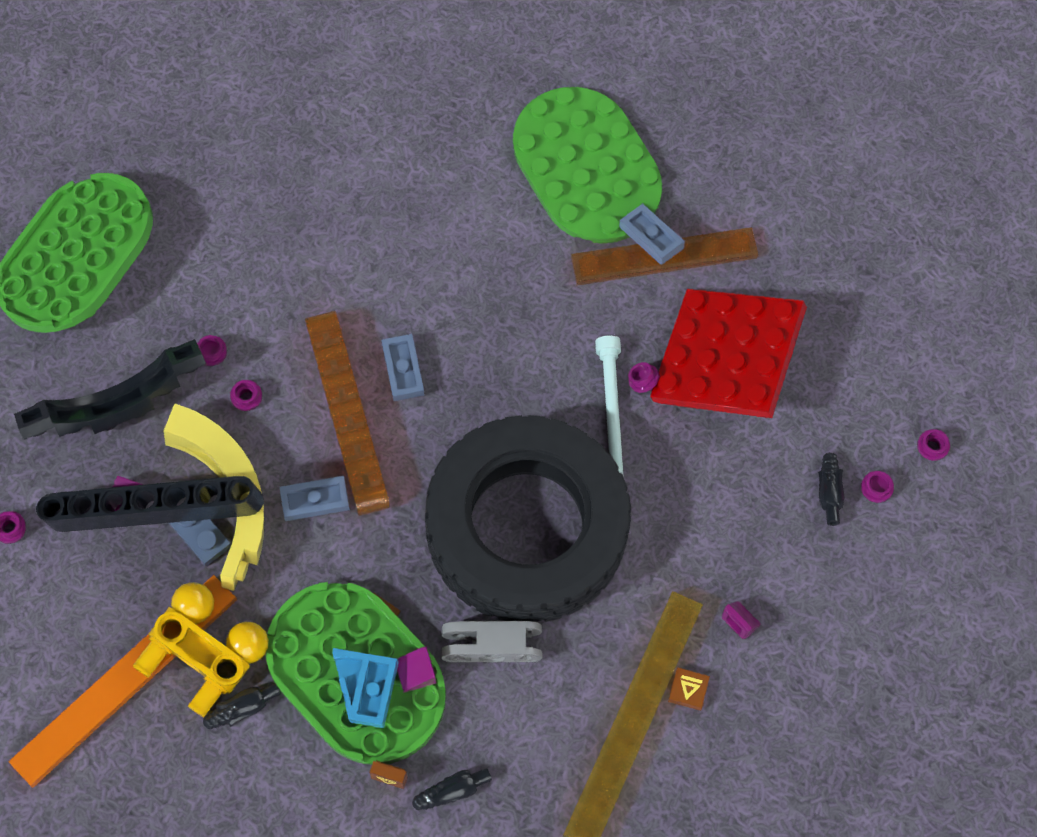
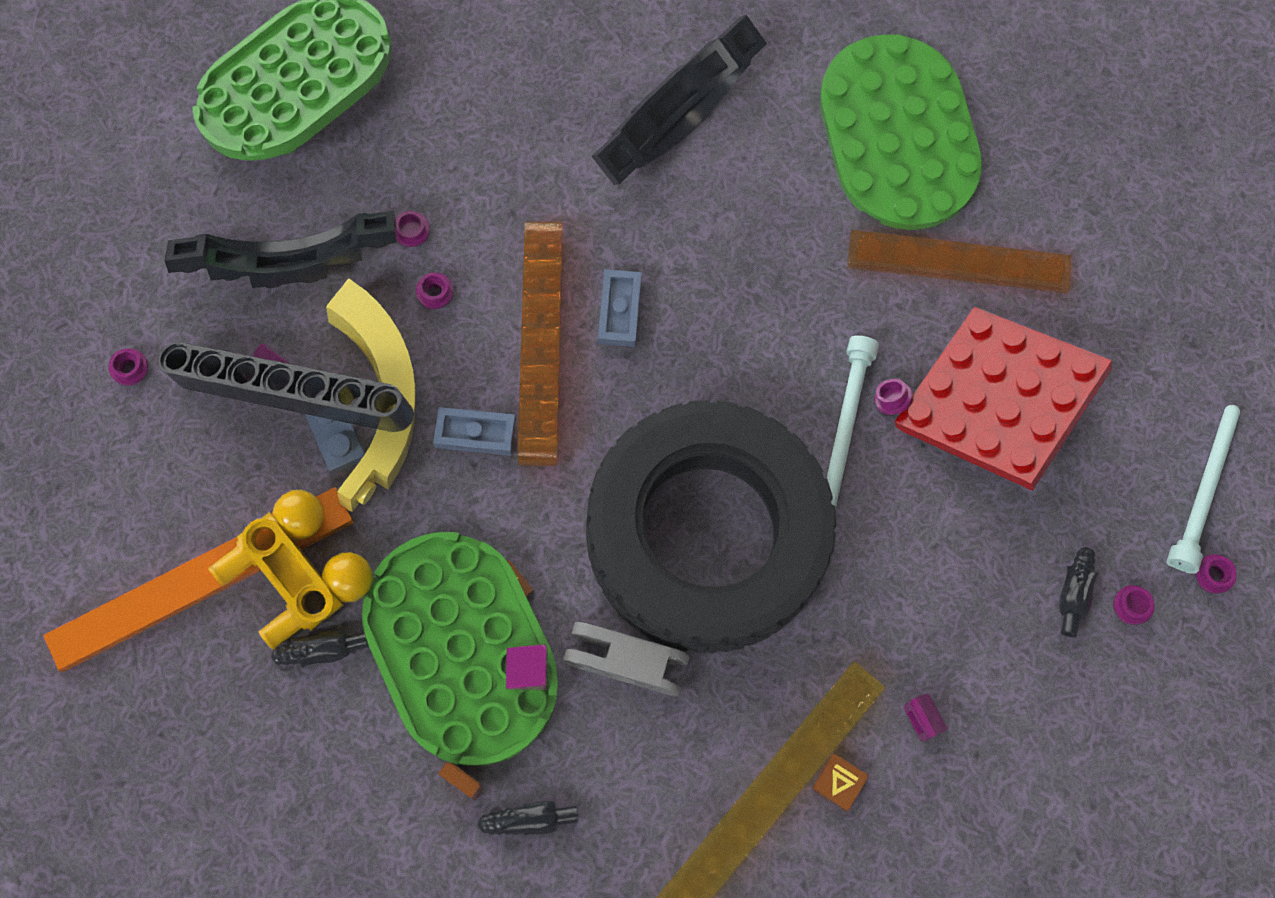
camera: 15 degrees right, 5 degrees up
(366, 685) = (464, 669): dark azure wing -> none
(402, 188) = (680, 102): none -> black piece
(652, 234) = (952, 232): sand blue plate -> none
(907, 432) = (1187, 550): none -> light aqua piece

